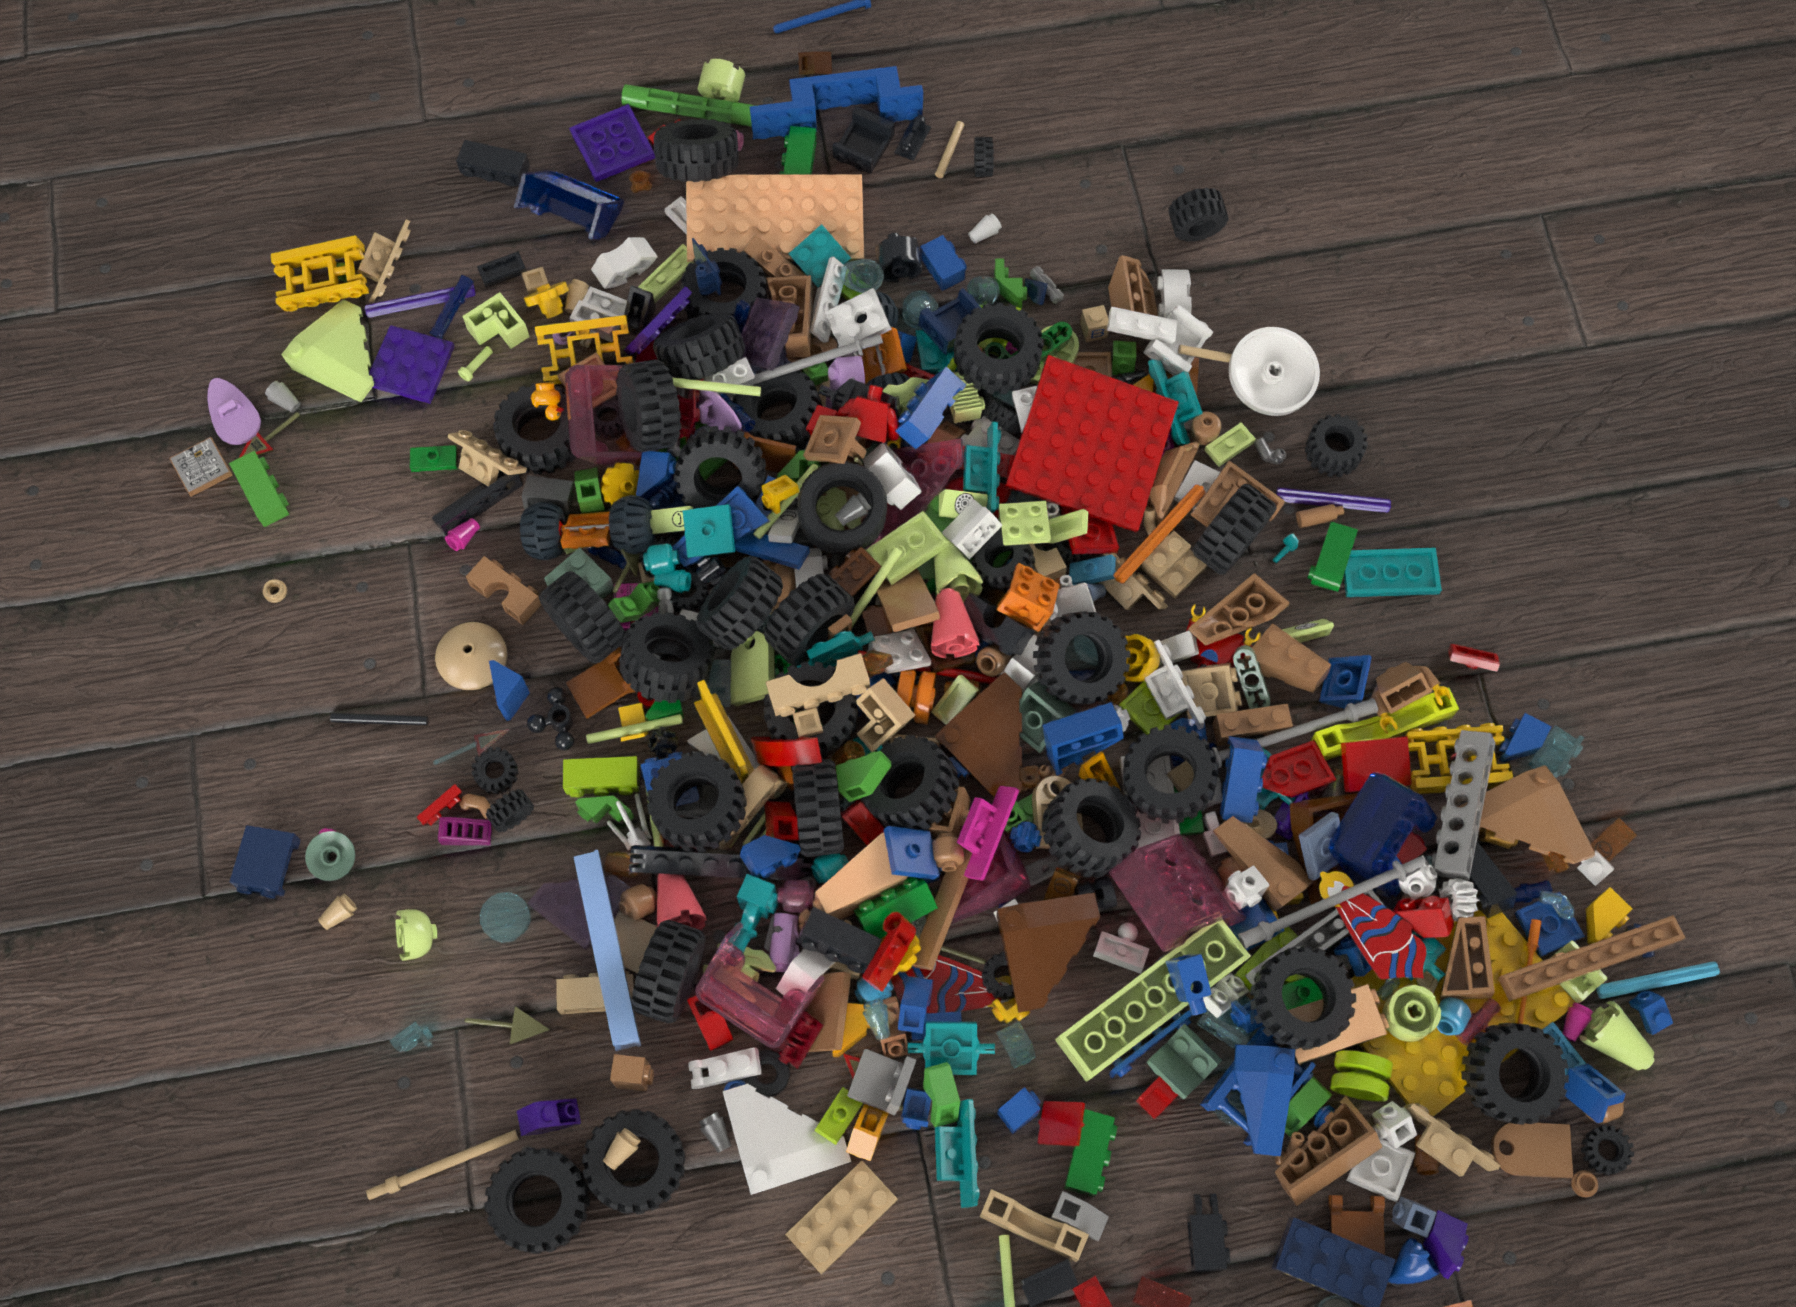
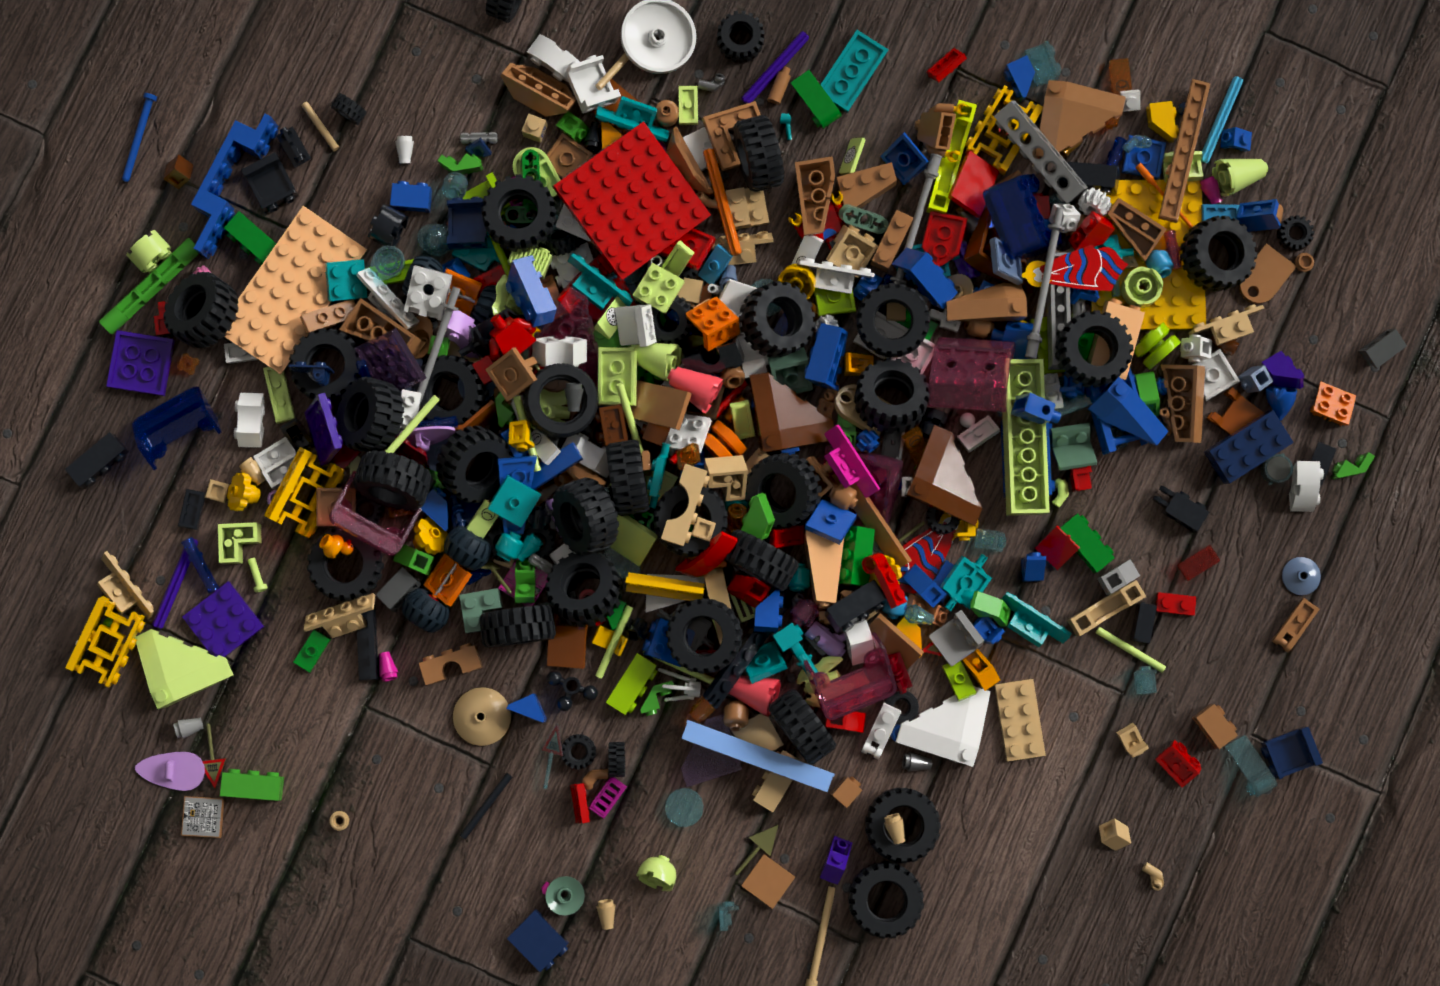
camera: 60 degrees left, 15 degrees up
(479, 1059) = (768, 881): none -> medium nougat tile
(714, 892) = (765, 663): none -> teal plate
(1127, 1088) = (1063, 492): none -> yellowish green arm
(1142, 325) = (566, 100): white plate -> none
(1246, 887) = (1000, 330): white brick -> none

